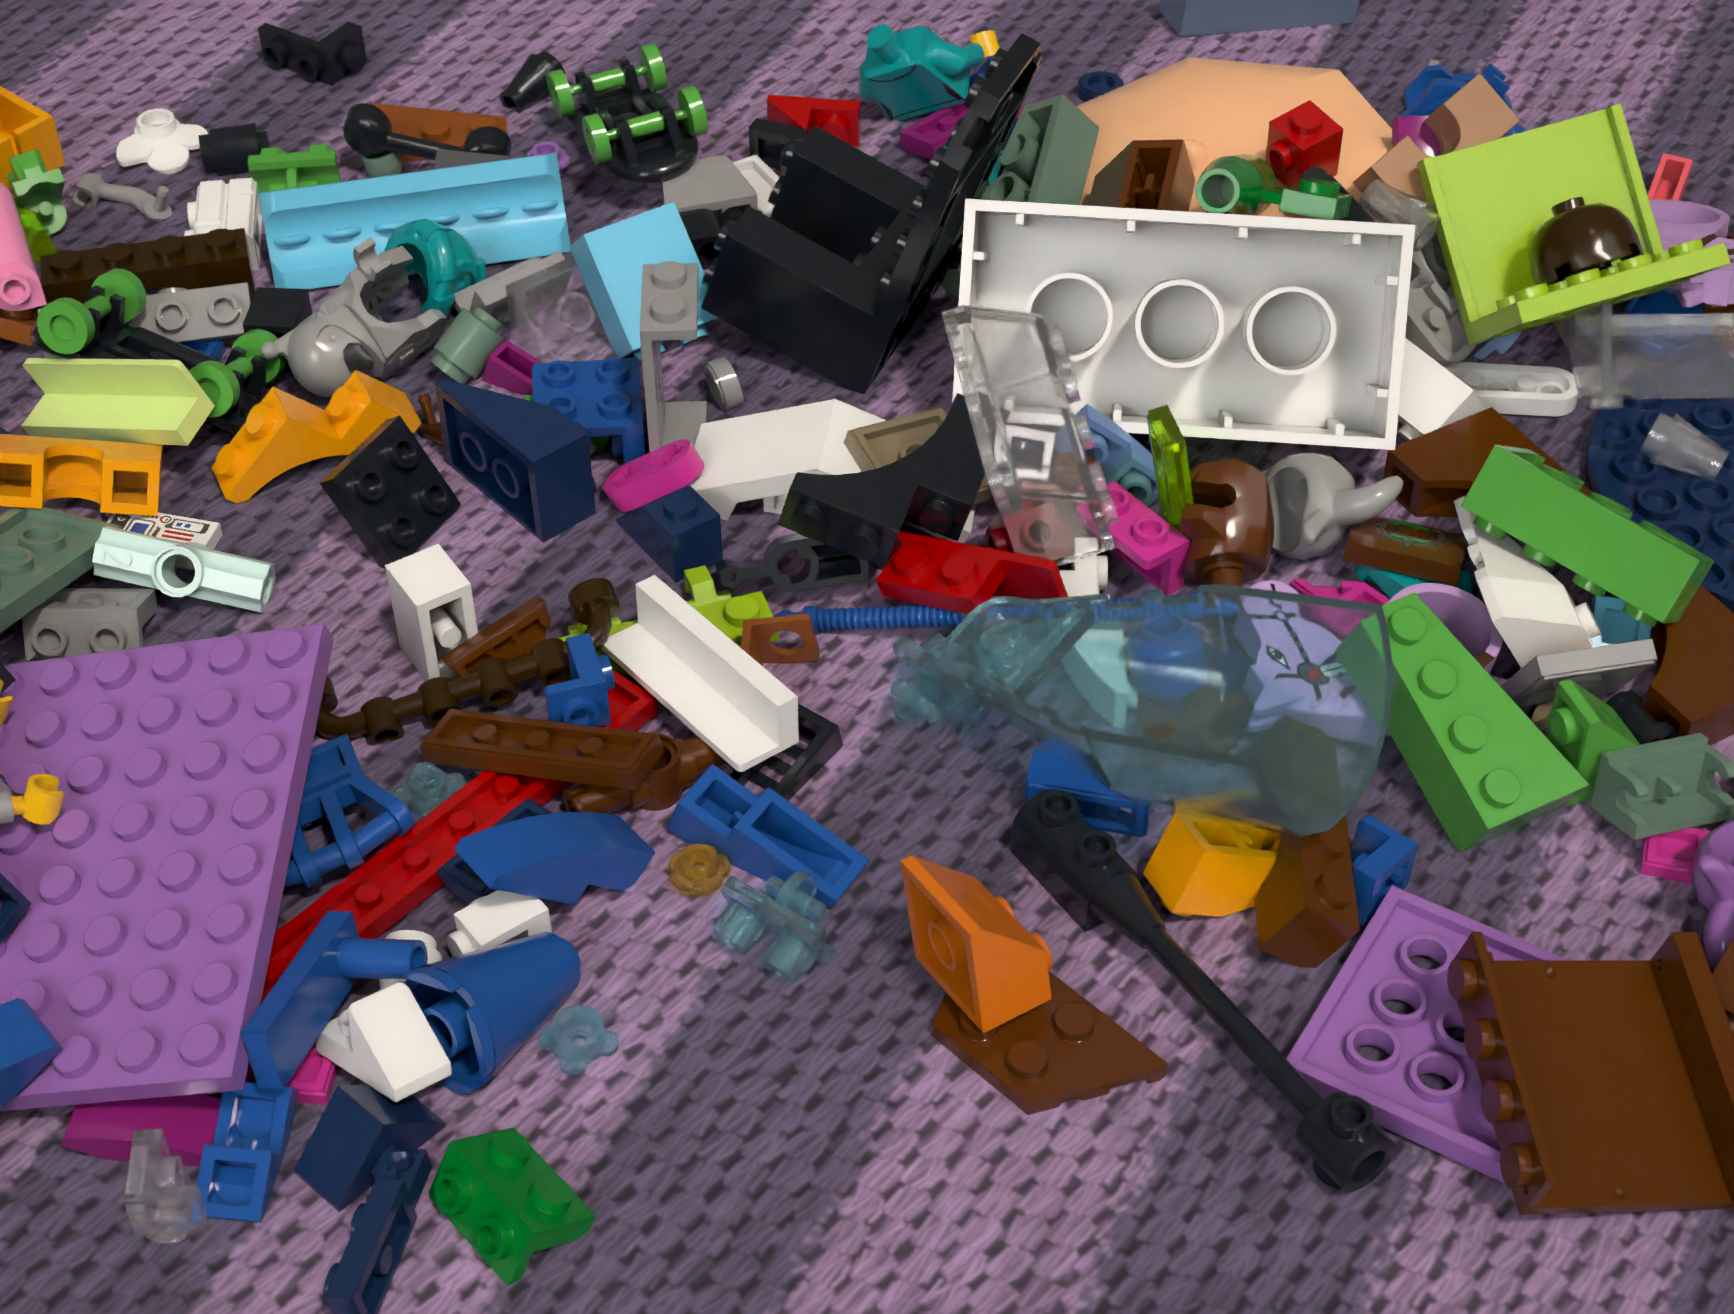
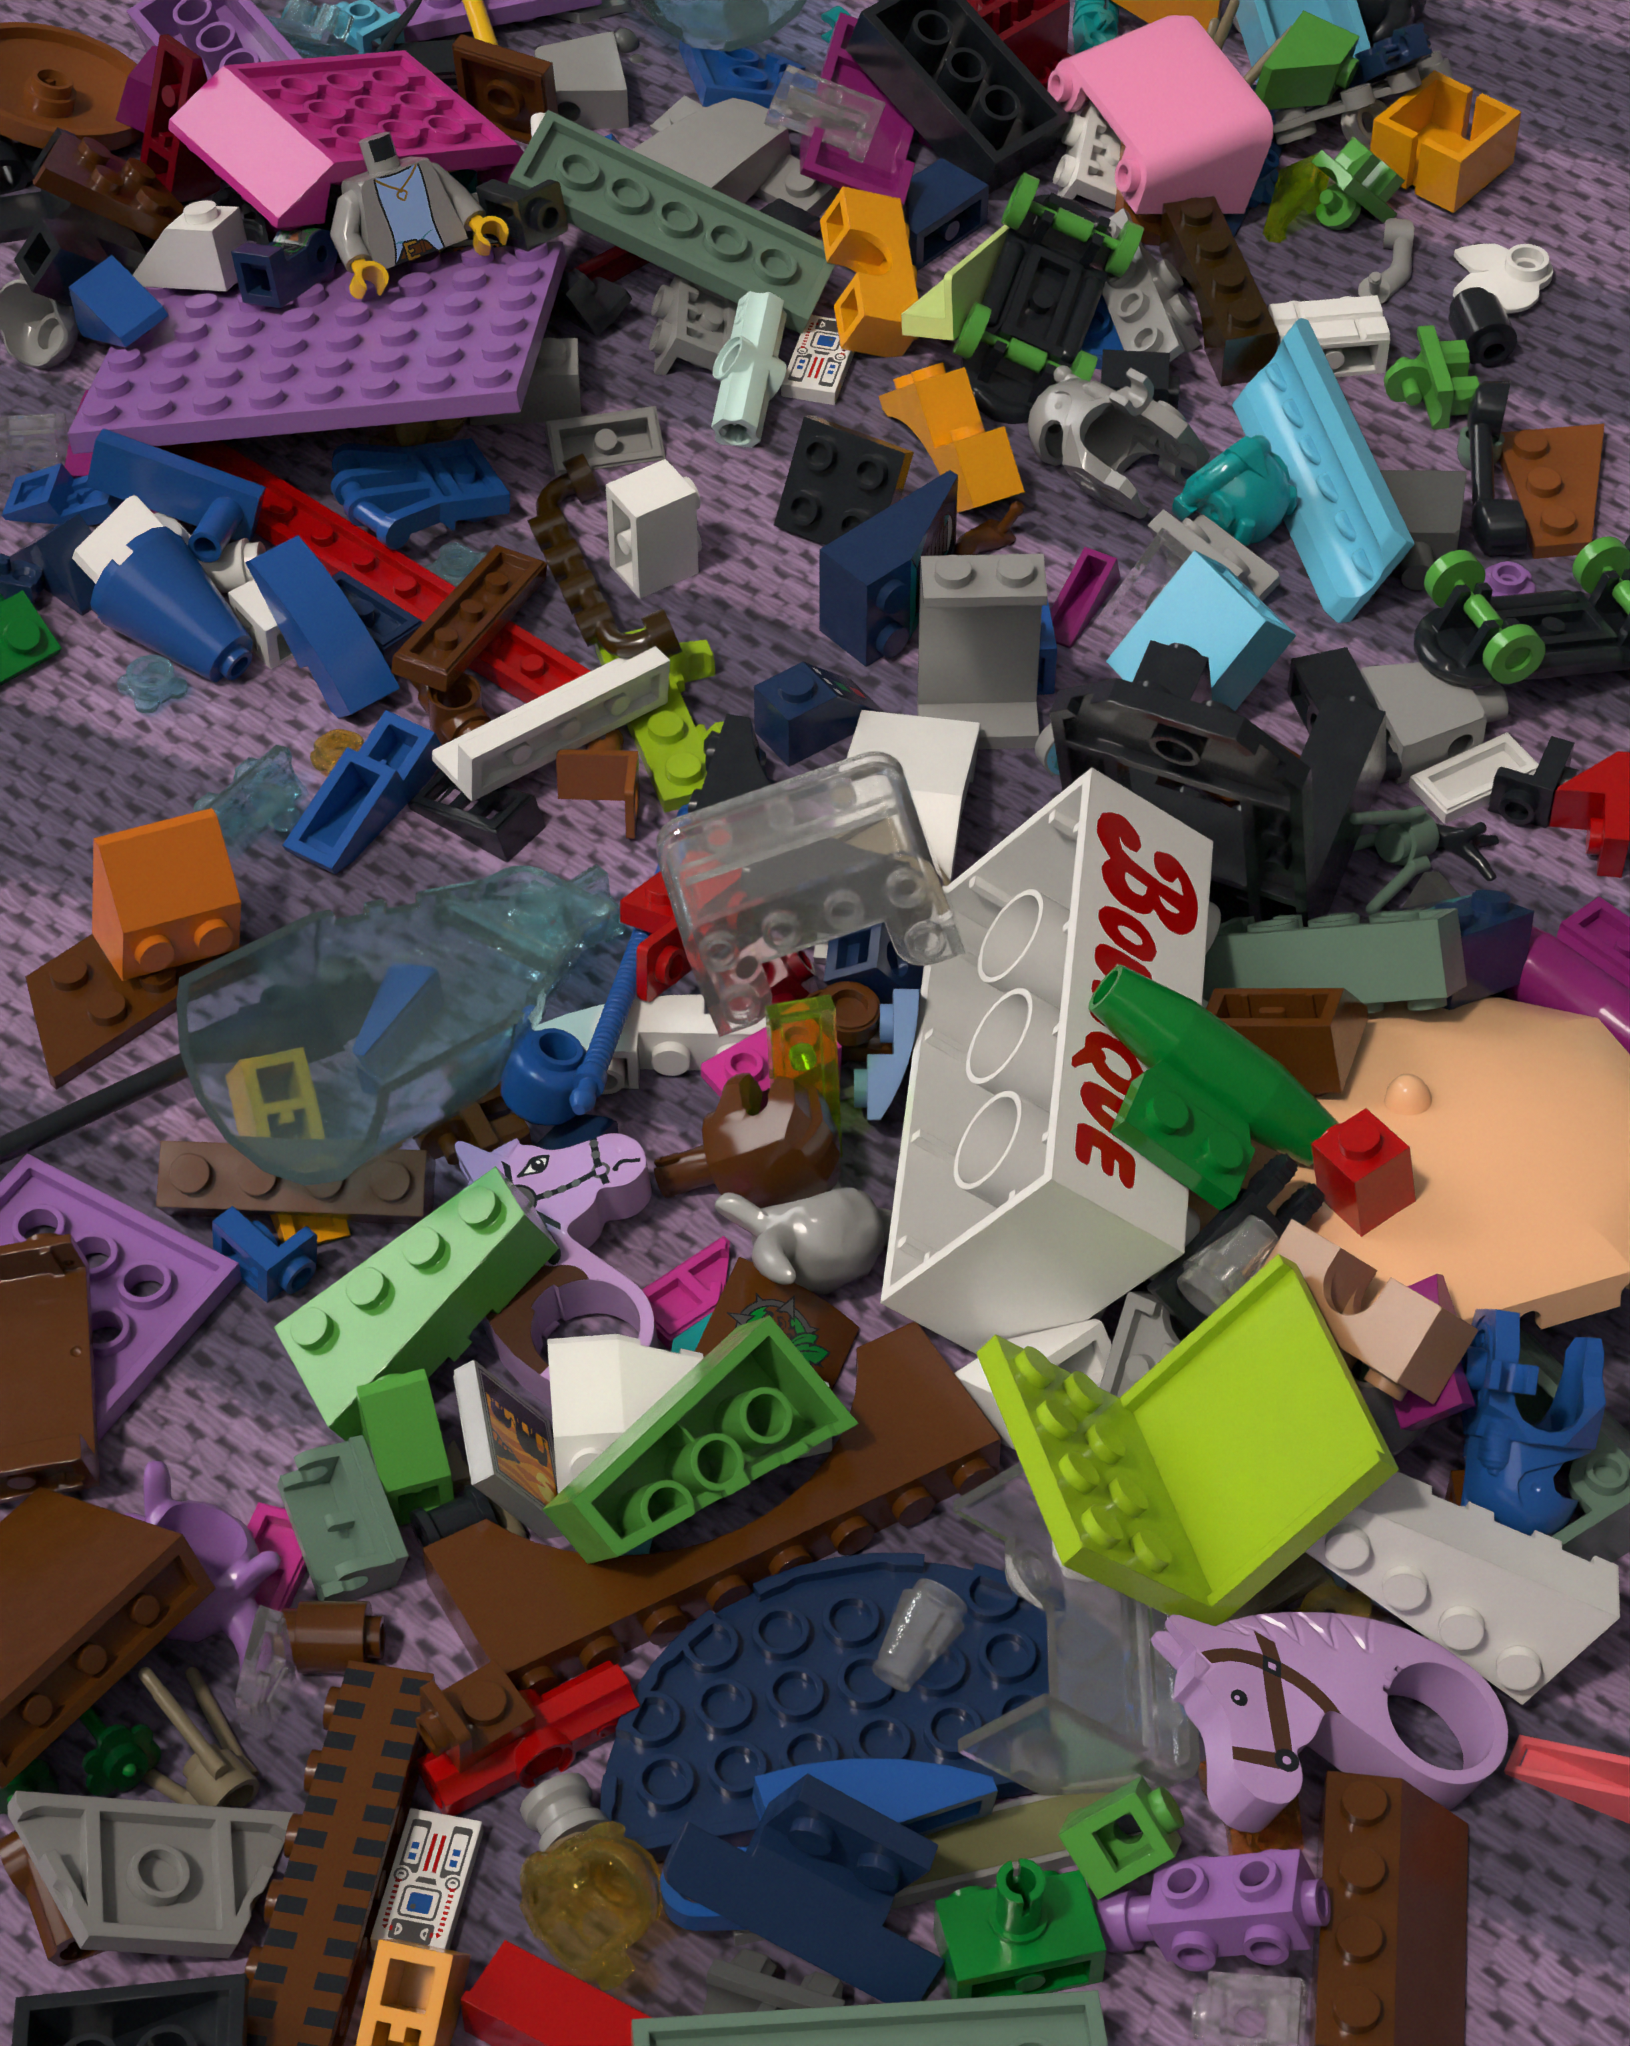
camera: 90 degrees right, 5 degrees up
(467, 344) = (1110, 529): sand green brick -> none
(506, 638) = (629, 590): reddish brown plate -> none
(586, 695) = (543, 636): blue bracket -> none
(653, 475) = (888, 687): dark pink beam -> none
(1581, 240) = (1168, 1455): dark brown cylinder -> none

